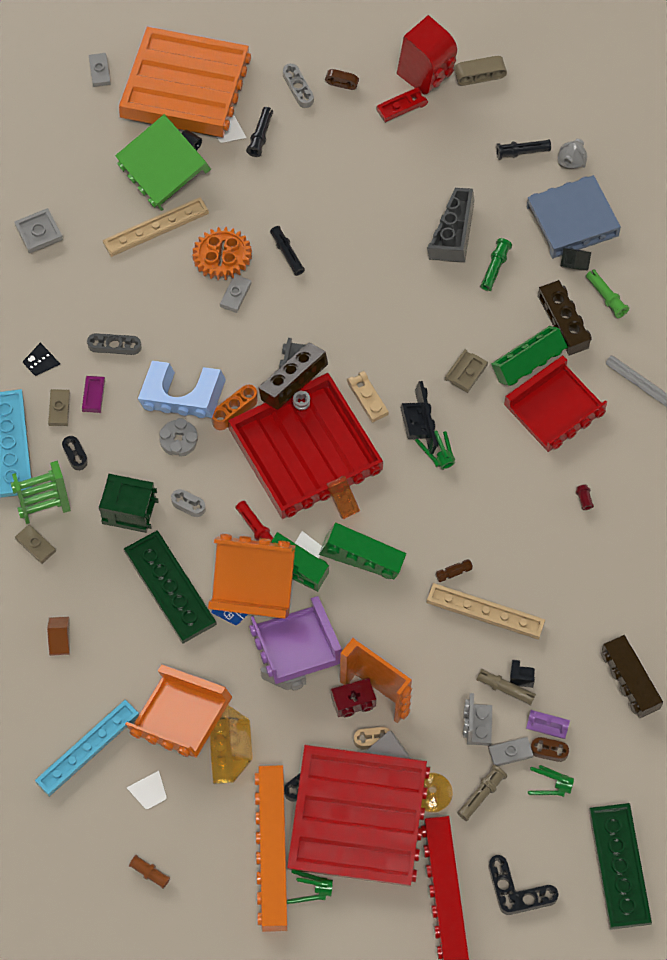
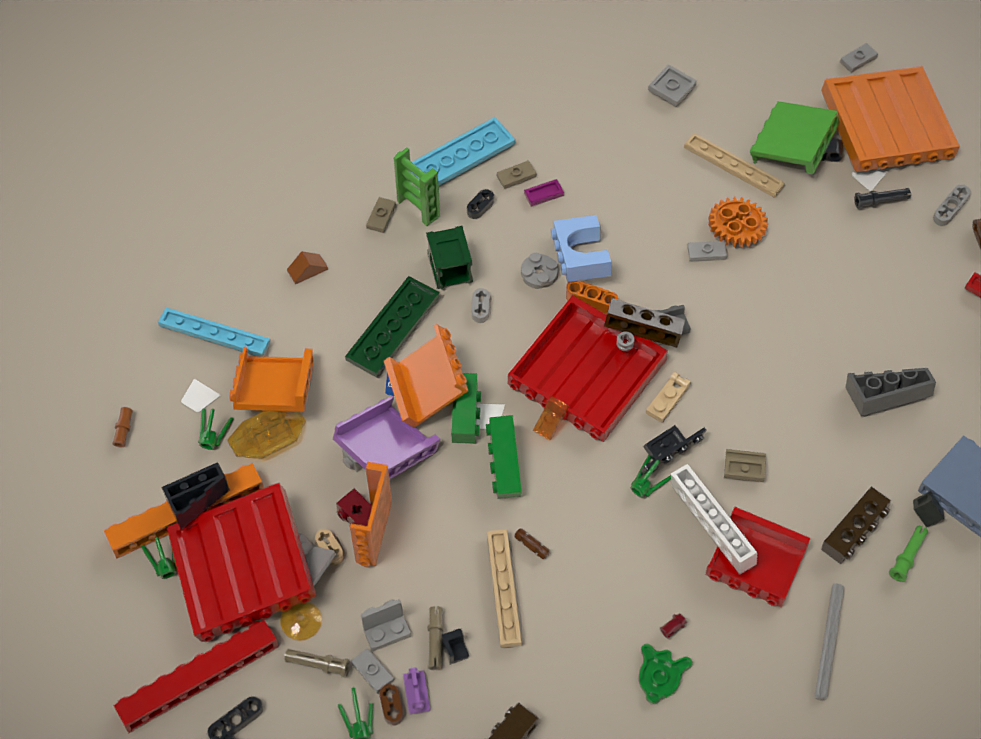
camera: 65 degrees right, 5 degrees down
(40, 360) = (553, 143): black sticker -> none
(100, 348) = (600, 192): dark grey beam -> none
(205, 797) = (208, 438): none -> green plant
(254, 523) = (483, 369): red pin -> none
(273, 826) = (195, 493): none -> black wedge
(283, 244) = (778, 265): black pin -> none
(498, 257) = (884, 441): green pin -> none
(509, 417) = (713, 519): none -> white brick
(529, 355) = (792, 510): green brick -> none
(621, 528) = (659, 674): none -> green tile

